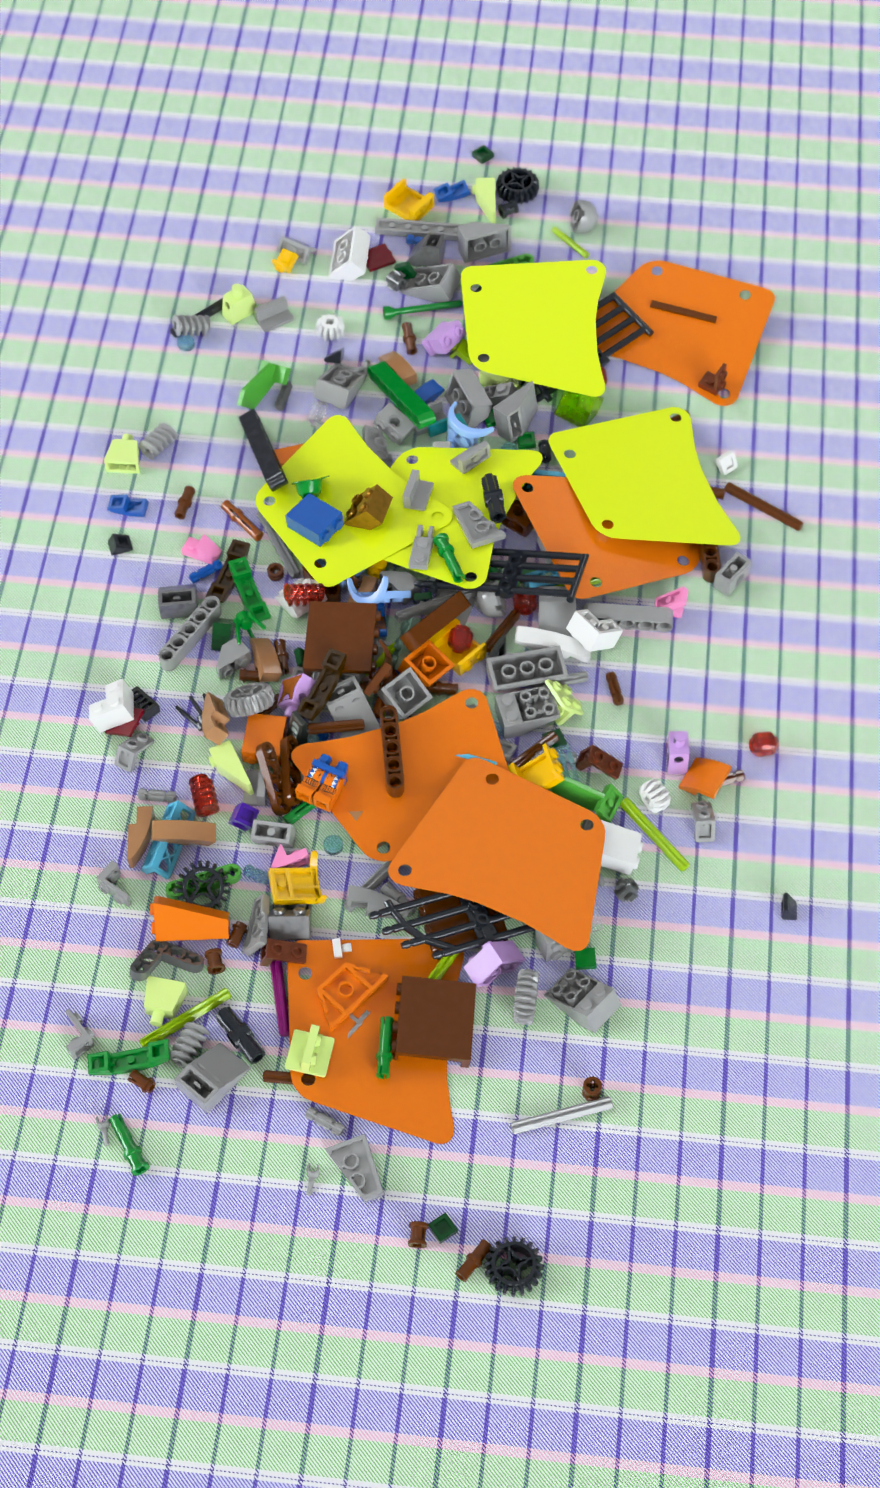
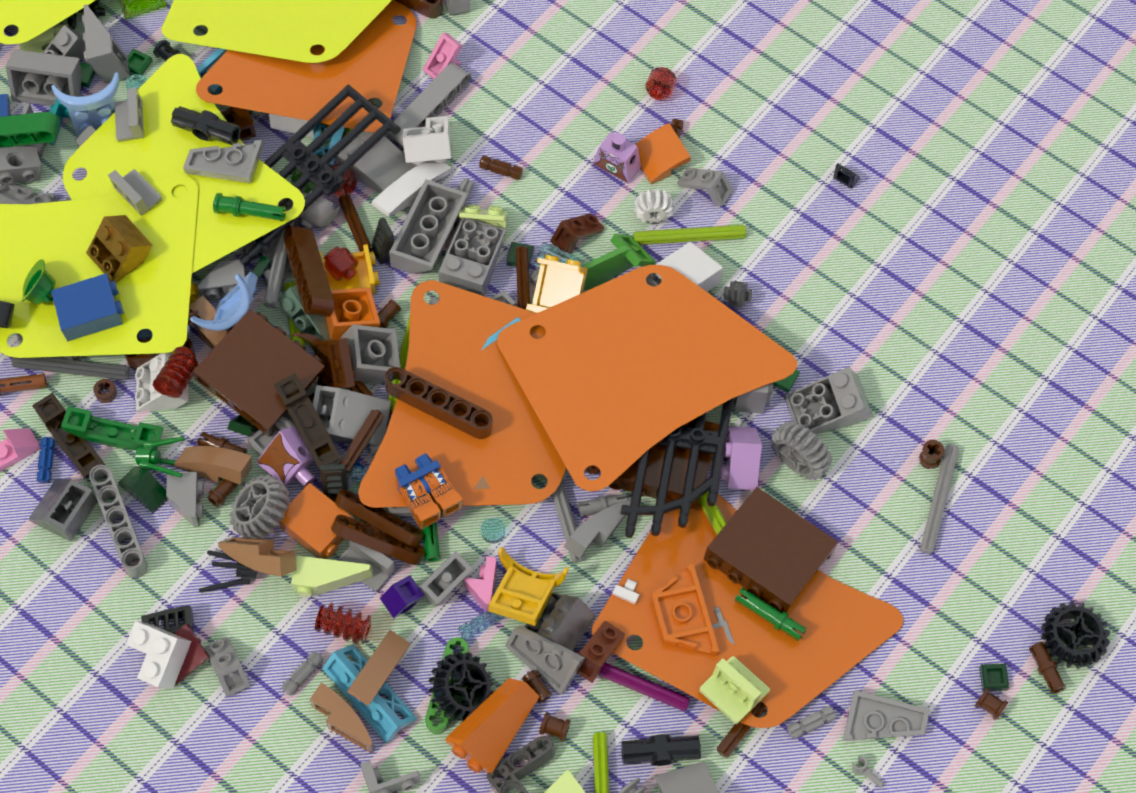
camera: 60 degrees left, 5 degrees up
(421, 549) = (213, 228): light grey hinge -> none

